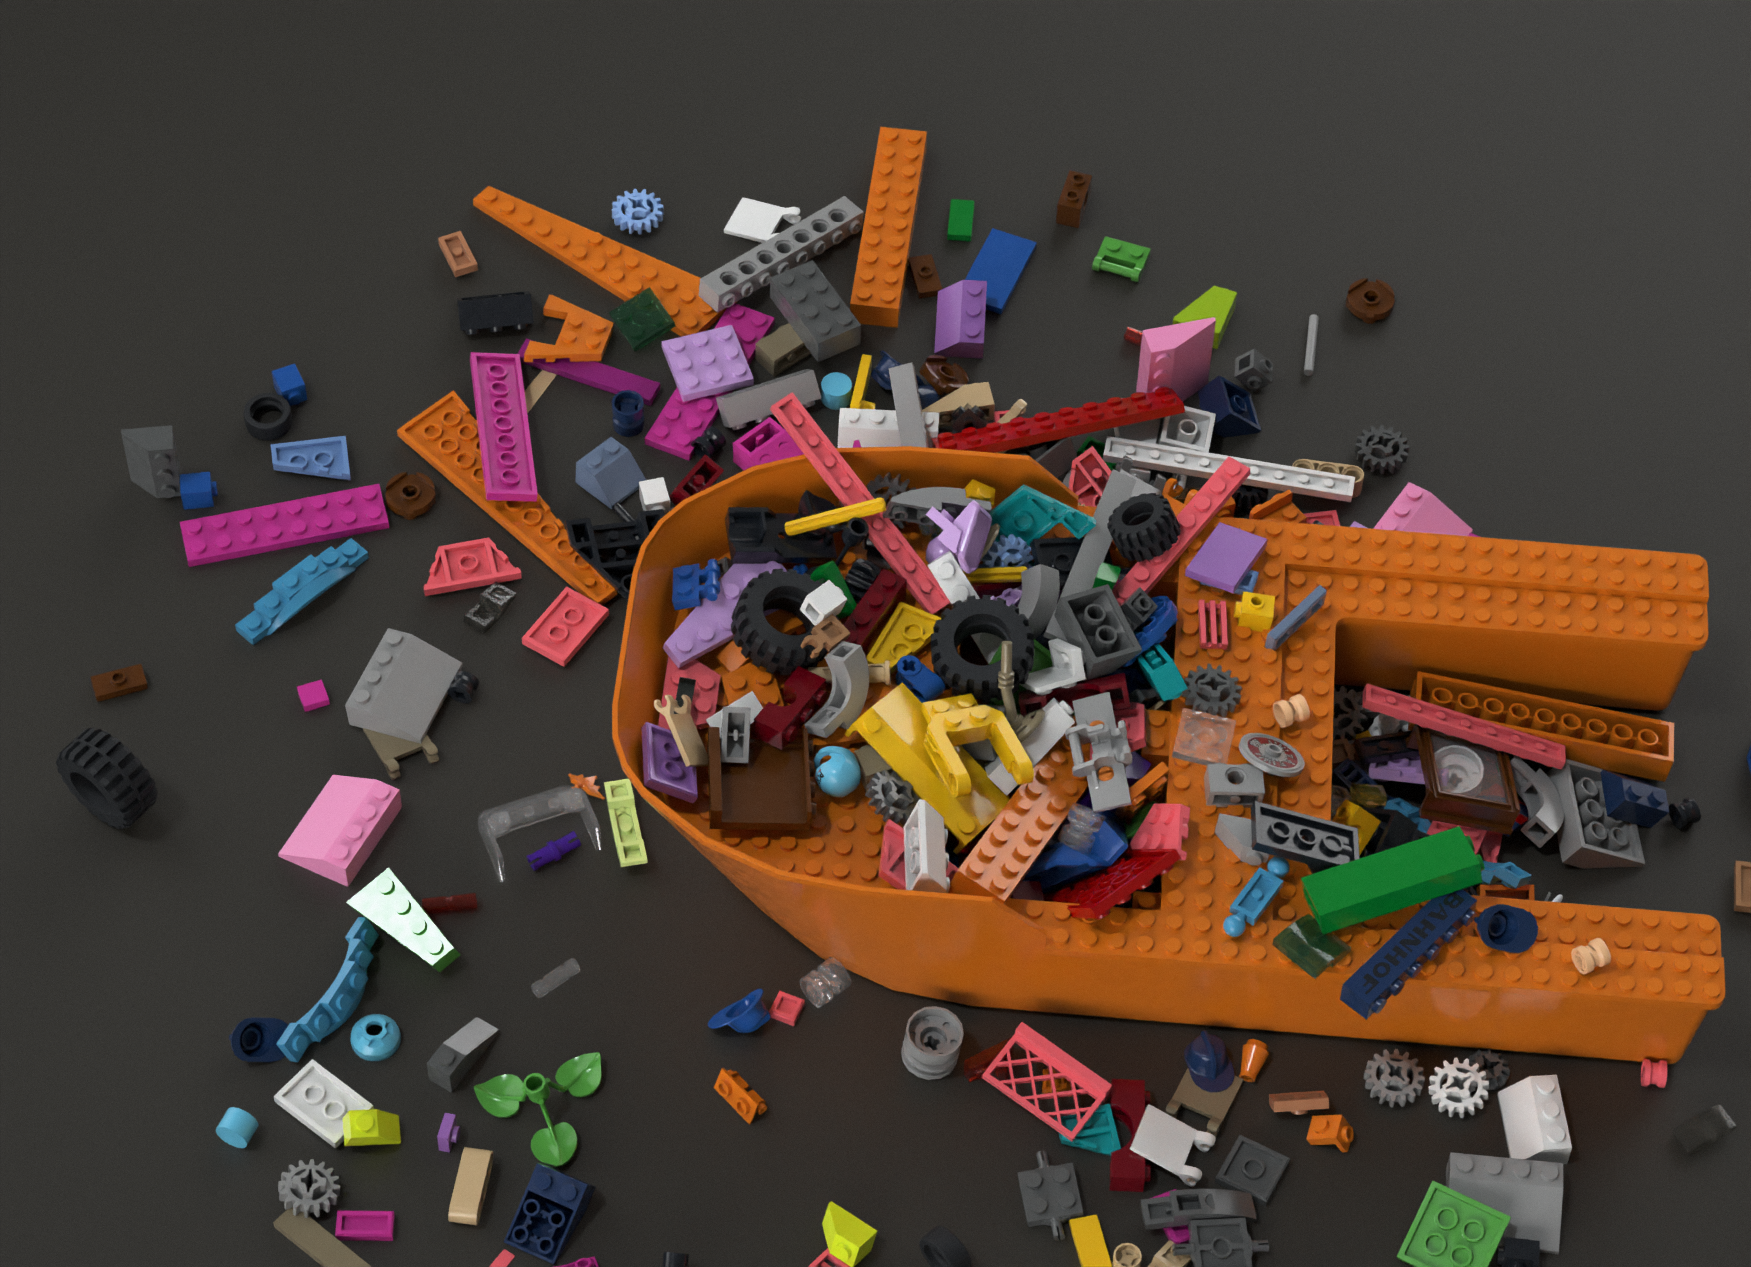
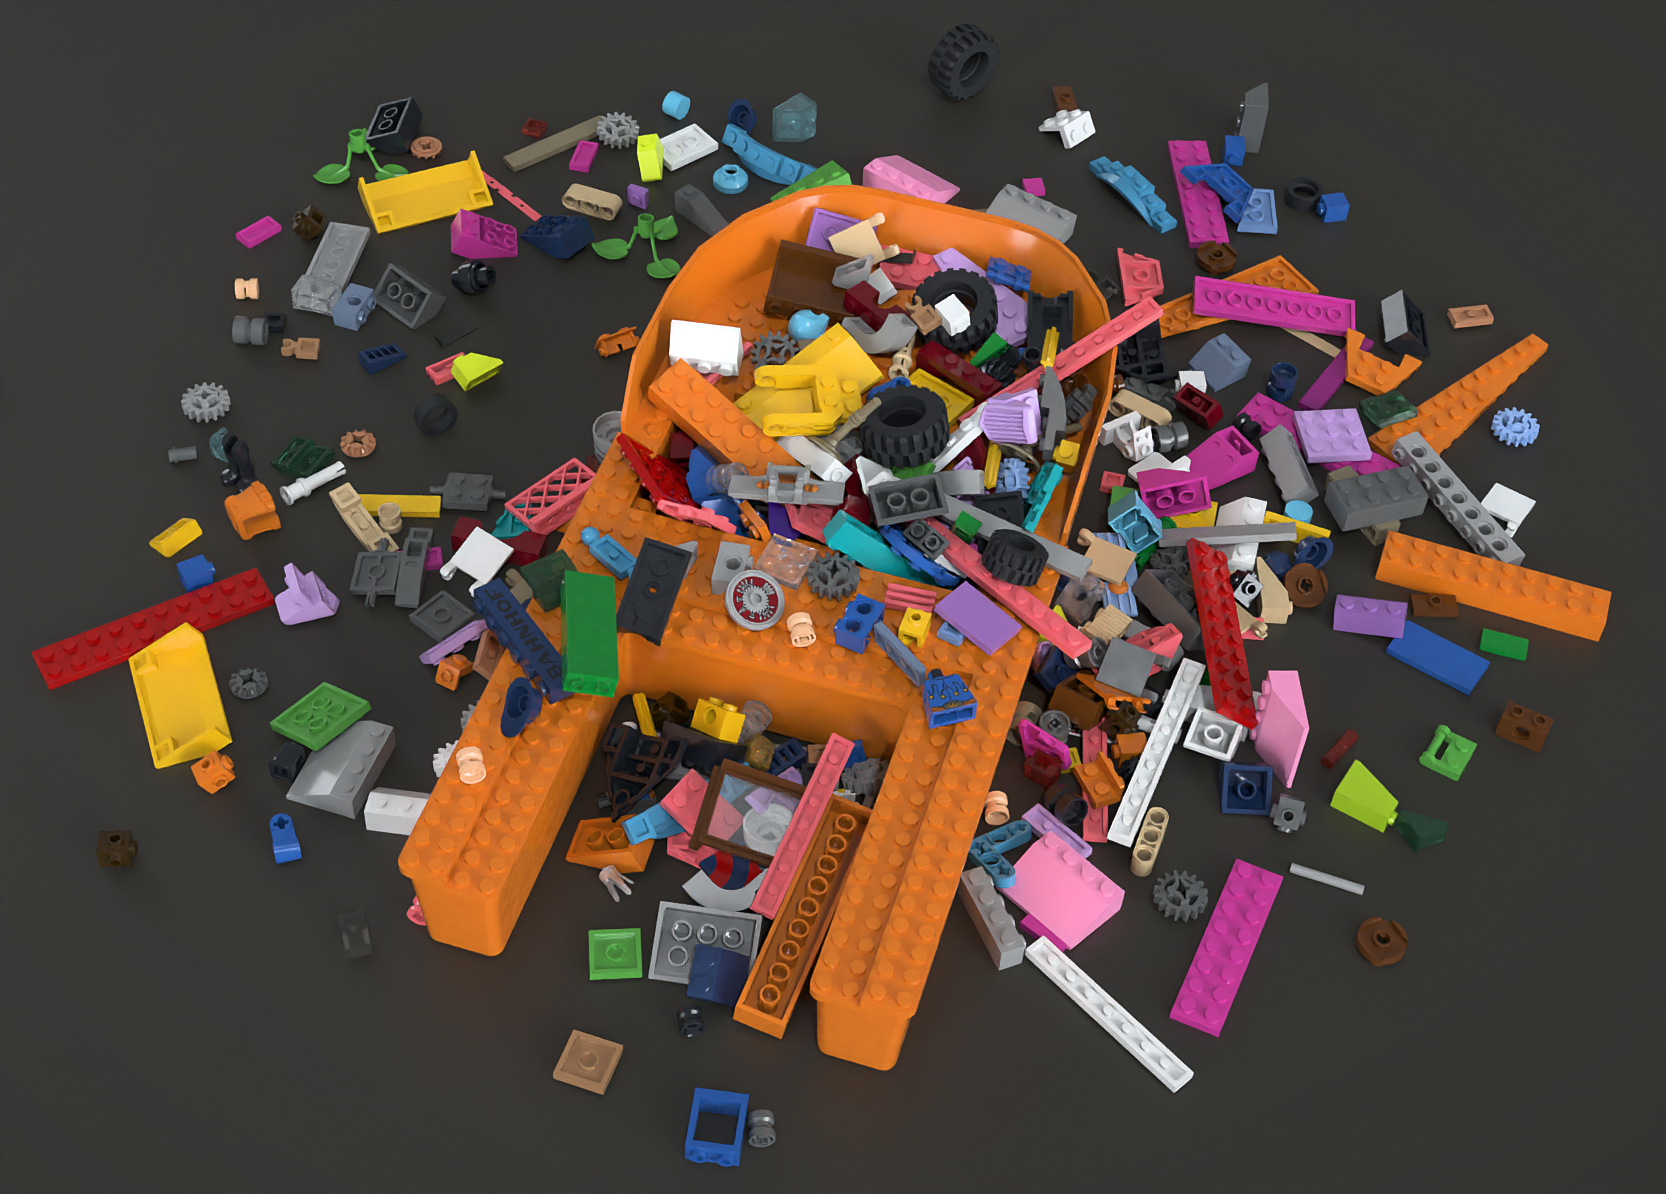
camera: 100 degrees right, 5 degrees down
(179, 670) = (1073, 126): none -> white bracket
(247, 968) = (794, 119): none -> clear light blue slope
(278, 485) = (1225, 182): none -> blue wing
(1235, 271) = (1420, 830): none -> clear green slope
(1266, 659) = (860, 618): none -> blue brick
(1292, 1141) = (454, 642): none -> lavender plate
(1345, 569) = (947, 700): none -> torso
(1419, 413) = (1226, 948): none -> dark pink plate
(1542, 483) = (1109, 1014): none -> white plate
(1621, 1228) = (284, 842): none -> blue piece
(1634, 889) = (615, 954): none -> bright green plate

